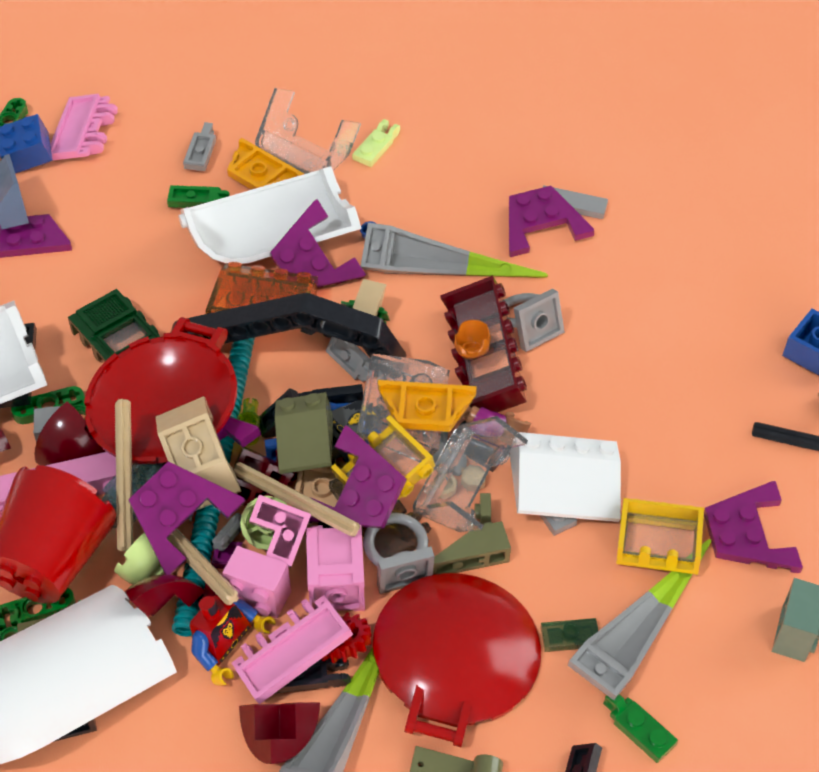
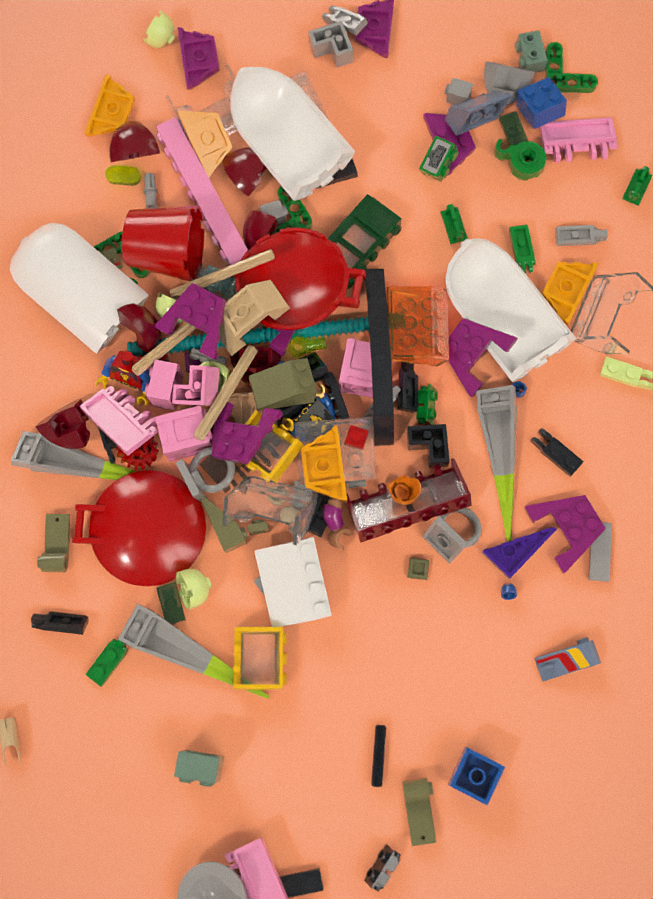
camera: 85 degrees right, 25 degrees up
(44, 178) = (513, 128): none -> clear green plate
(52, 243) = (438, 159): none -> brick
(84, 174) = (518, 154): none -> green piece
(149, 251) = (453, 224): none -> green hinge
(160, 93) = (637, 185): none -> green hinge
(301, 360) = (356, 369): none -> bright pink container
(370, 297) = (428, 403): tan slope -> none
(395, 368) = (356, 437): none -> red plate
(417, 311) = (430, 438): none -> black brick
(452, 215) = (557, 453): none -> black hinge
(555, 597) = (193, 587): none -> yellowish green cylinder
(563, 269) = (513, 555): none -> dark purple wing
(566, 362) = (418, 569): none -> olive tile
(606, 283) = (508, 592): none -> blue hinge
(692, 247) = (568, 660): none -> sand blue door
(738, 532) = (282, 718): magenta wing -> none

